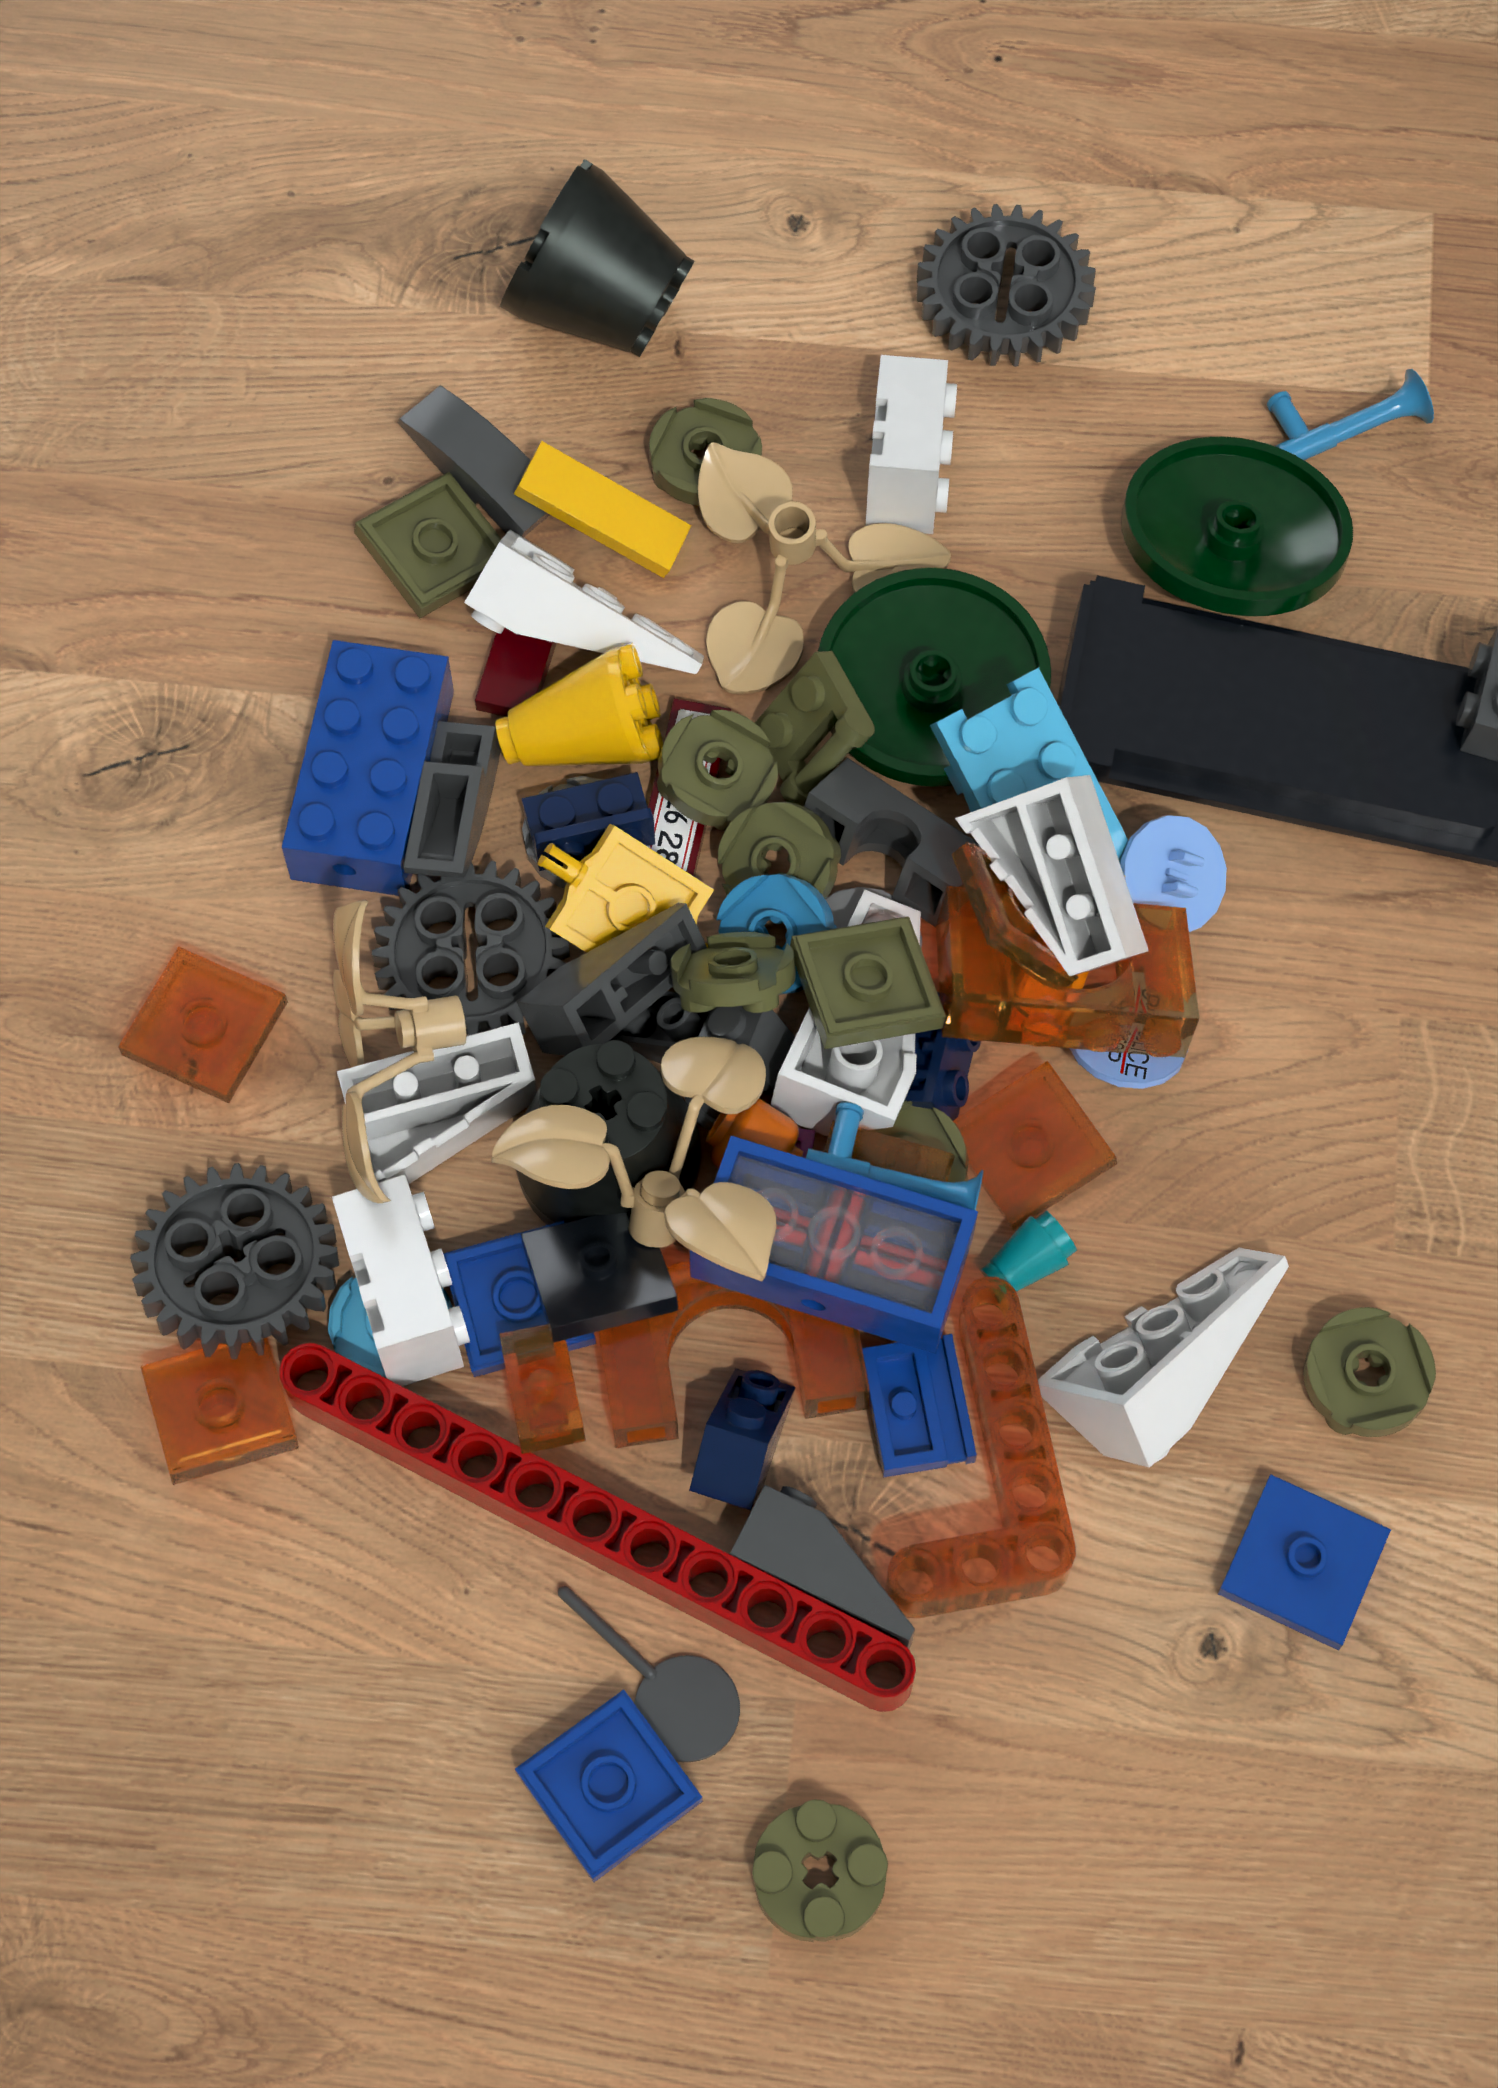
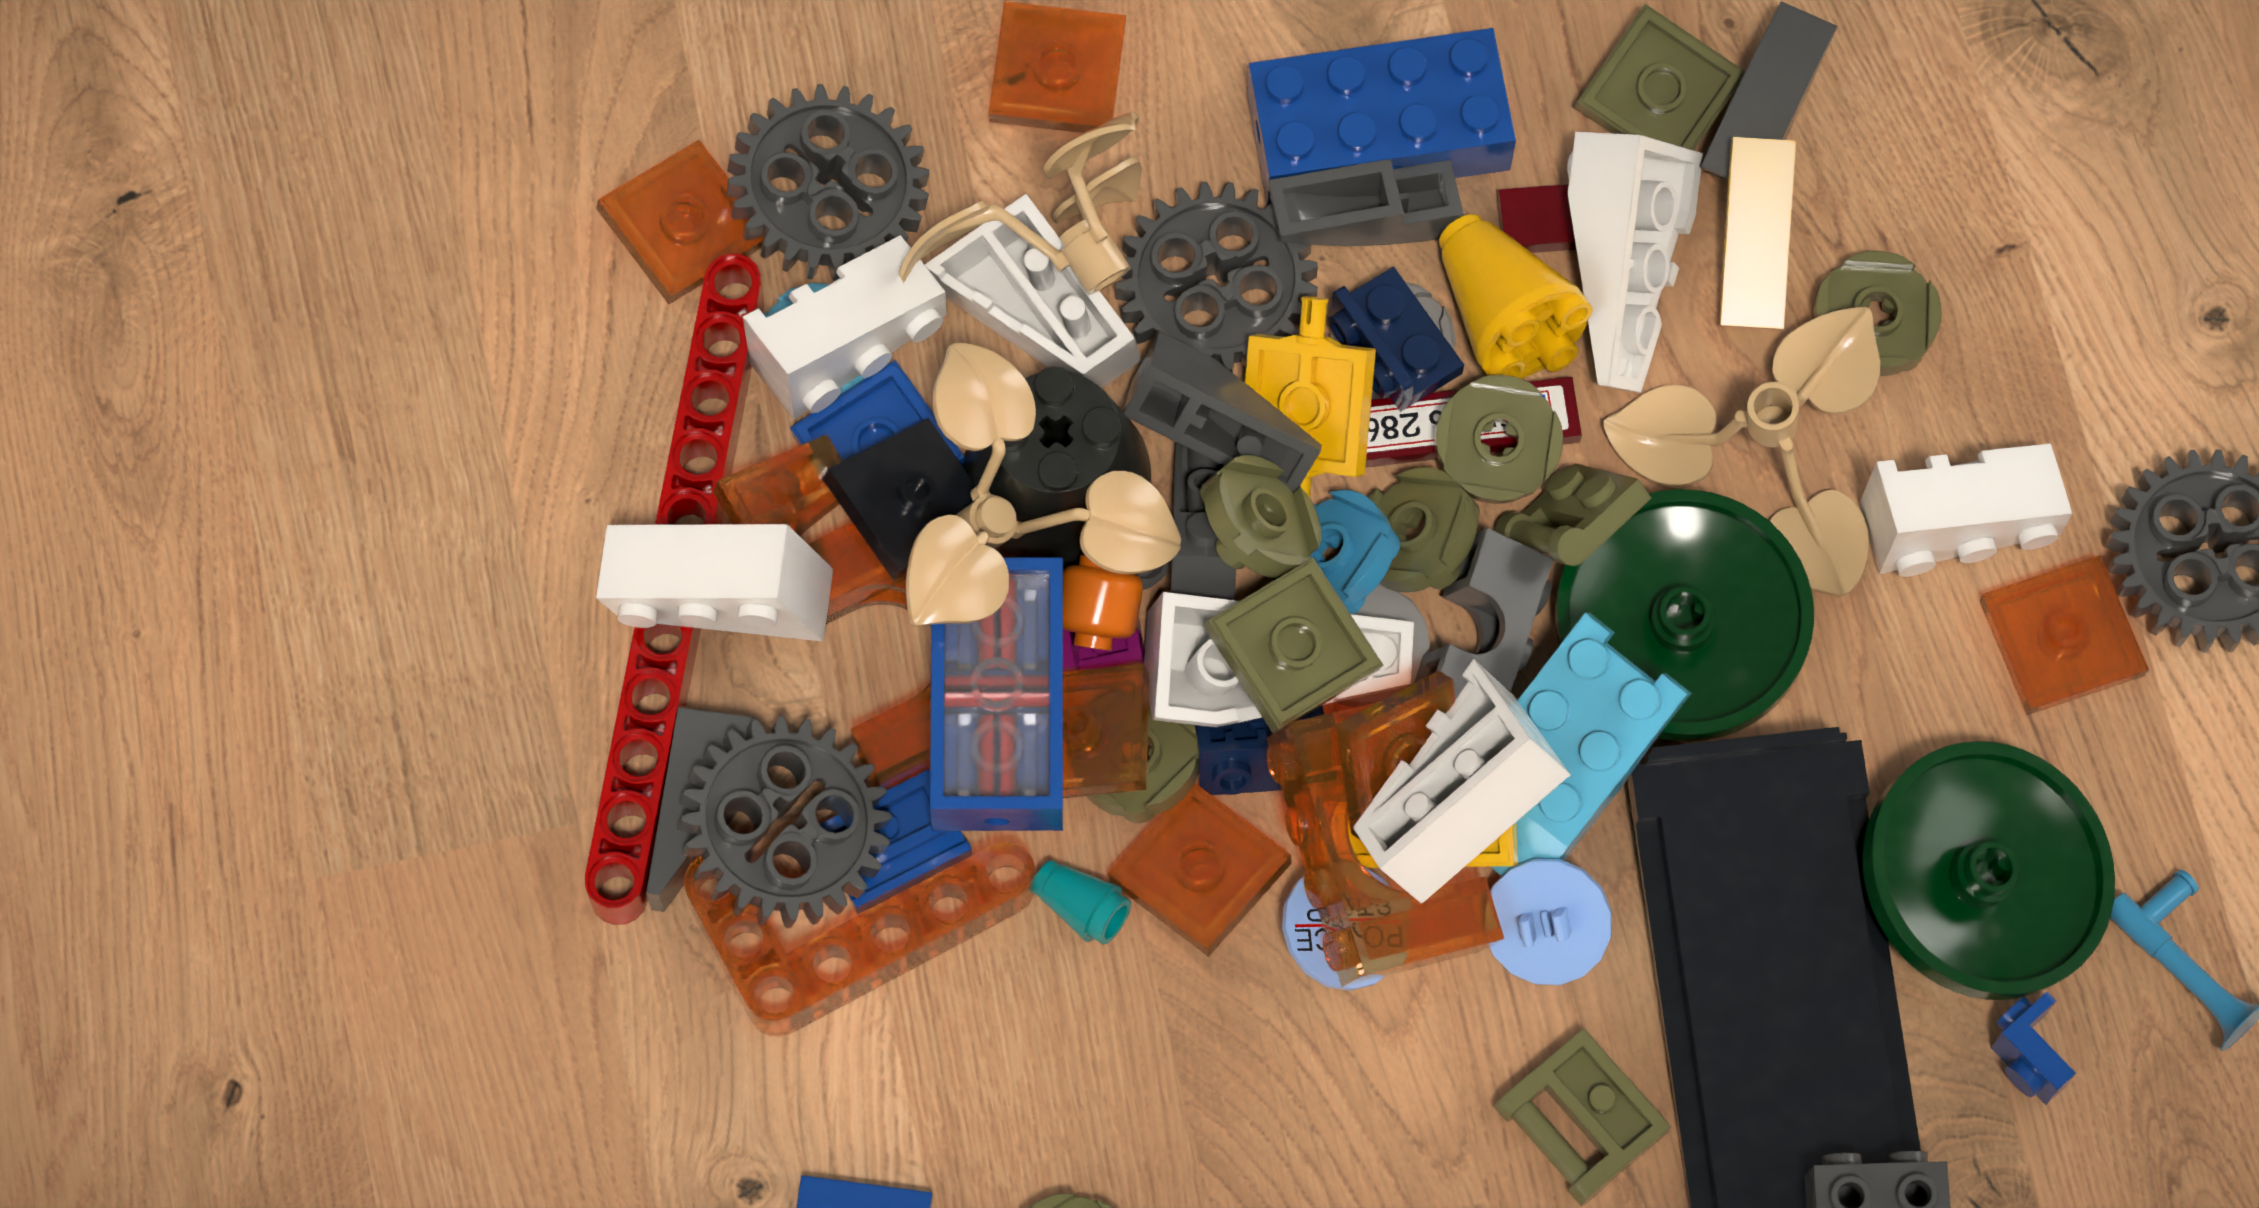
camera: 70 degrees right, 5 degrees up
(598, 266) = (2037, 124): pearl dark grey cone -> none
(608, 1785) = (440, 679): blue plate -> none
(623, 1473) = (716, 579): none -> white wedge
(682, 1698) = (542, 724): dark grey piece -> none
(742, 1438) = (803, 685): dark blue slope -> none
(823, 1911) = (433, 924): olive plate -> none
(834, 1507) = (741, 783): none -> dark grey gear
(840, 1153) = (1085, 679): dark azure piece -> none
(1037, 416) = (2063, 635): none -> clear orange plate
(1157, 1374) = (996, 1053): white wedge -> none
(1347, 890) = (1598, 1102): none -> olive plate
(1397, 556) = (2030, 1060): none -> blue bracket

